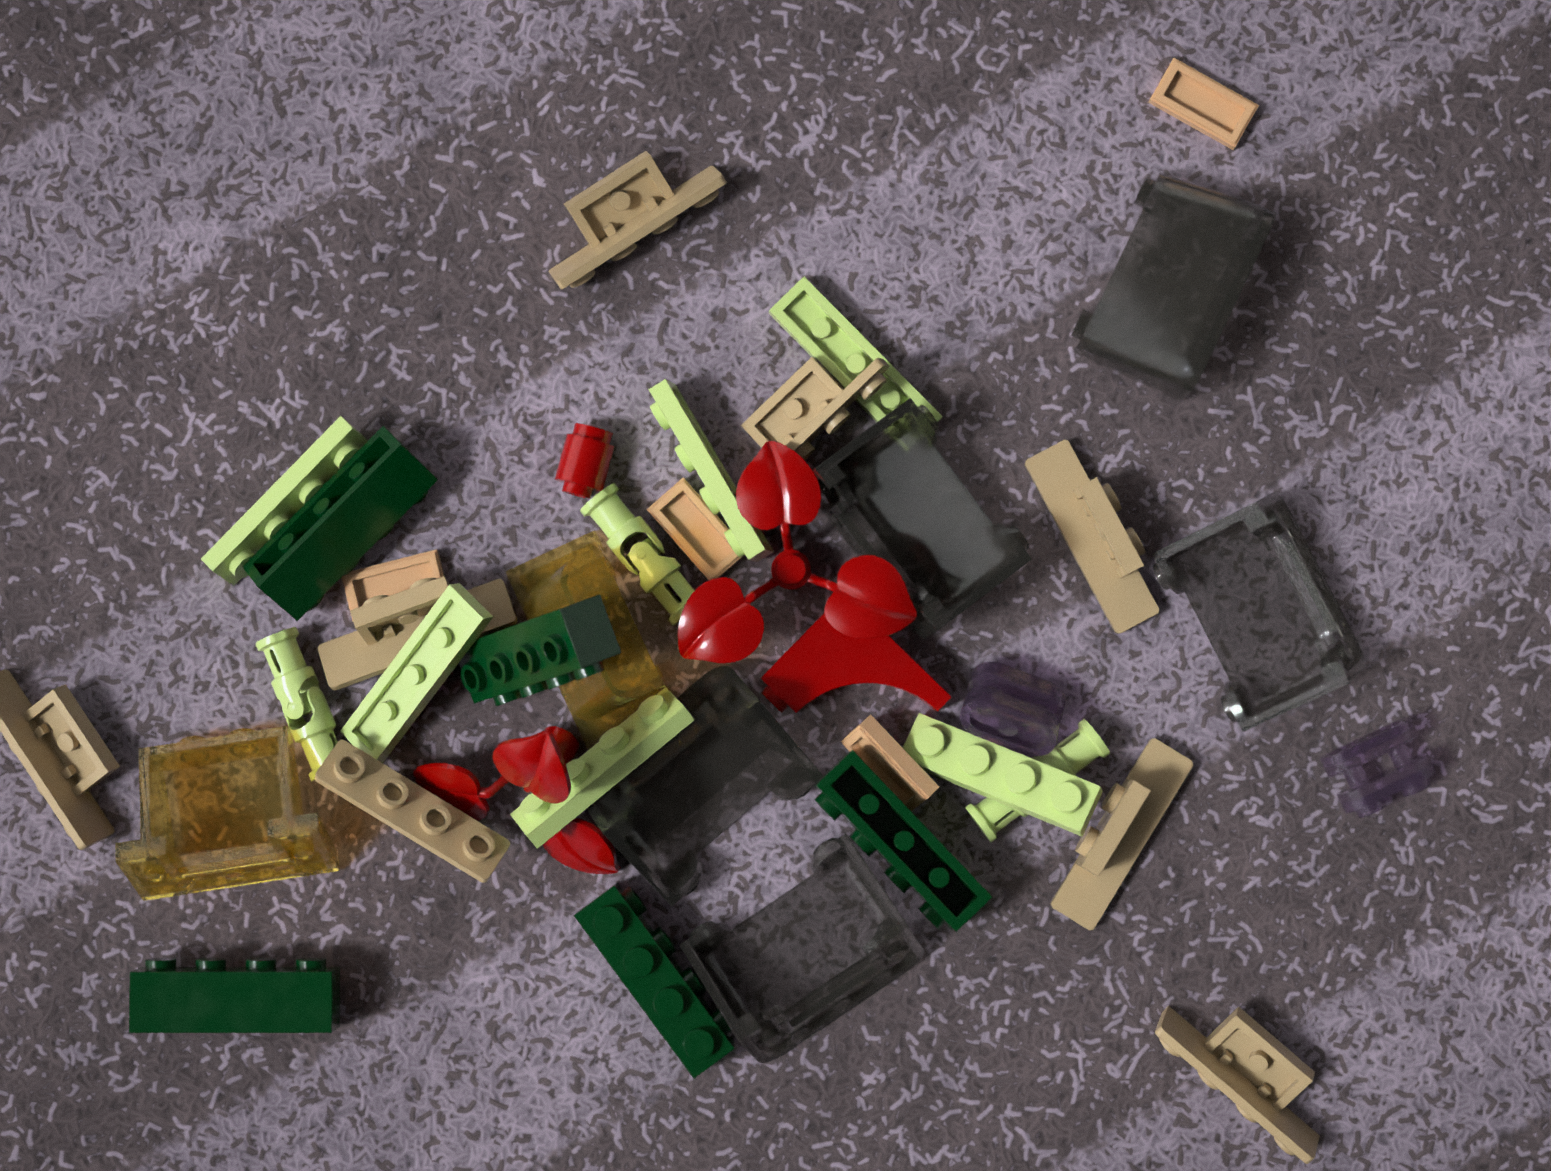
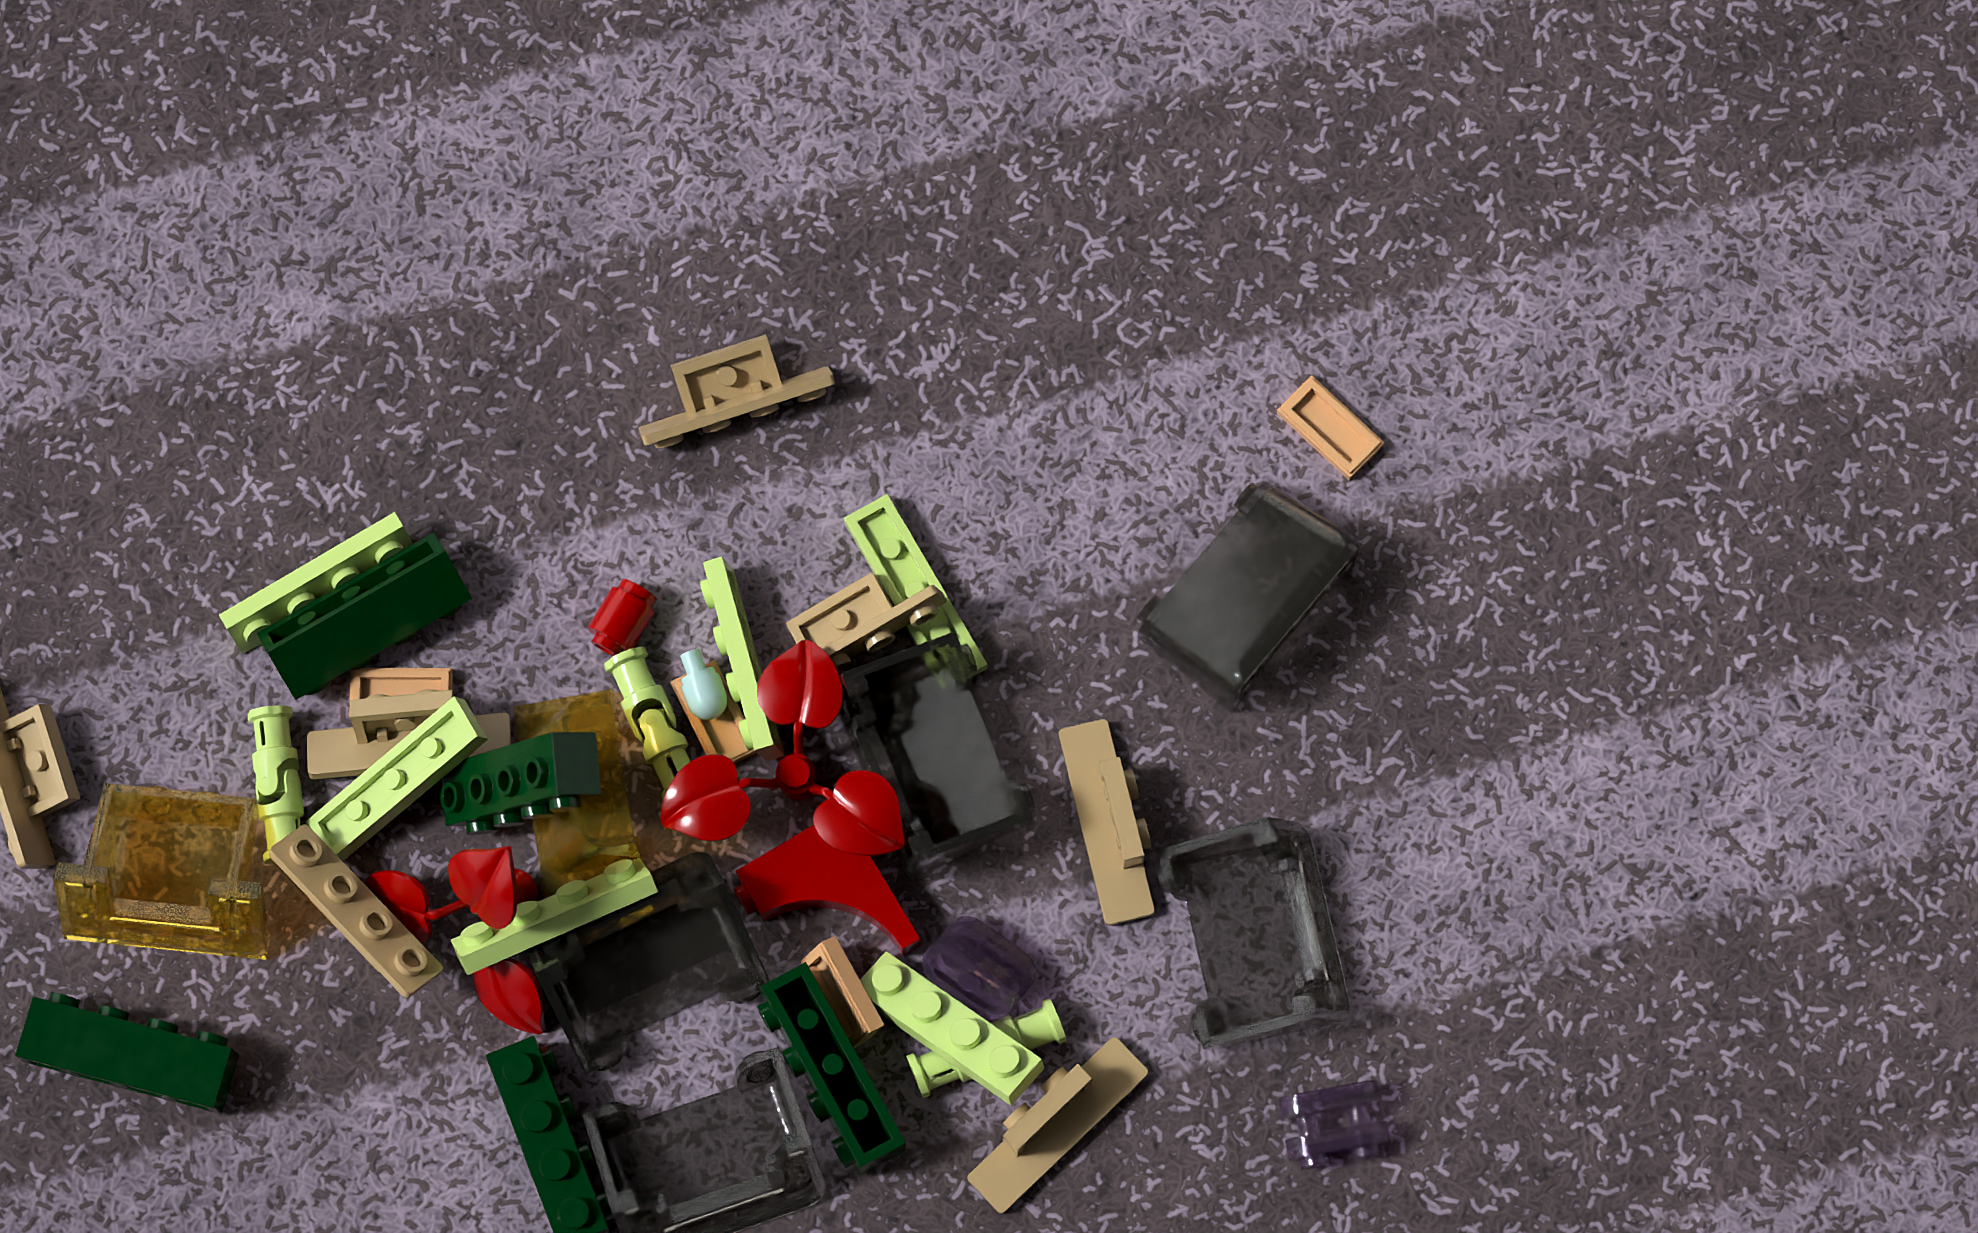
camera: 20 degrees right, 10 degrees down
(680, 509) = (702, 687): none -> light aqua cylinder

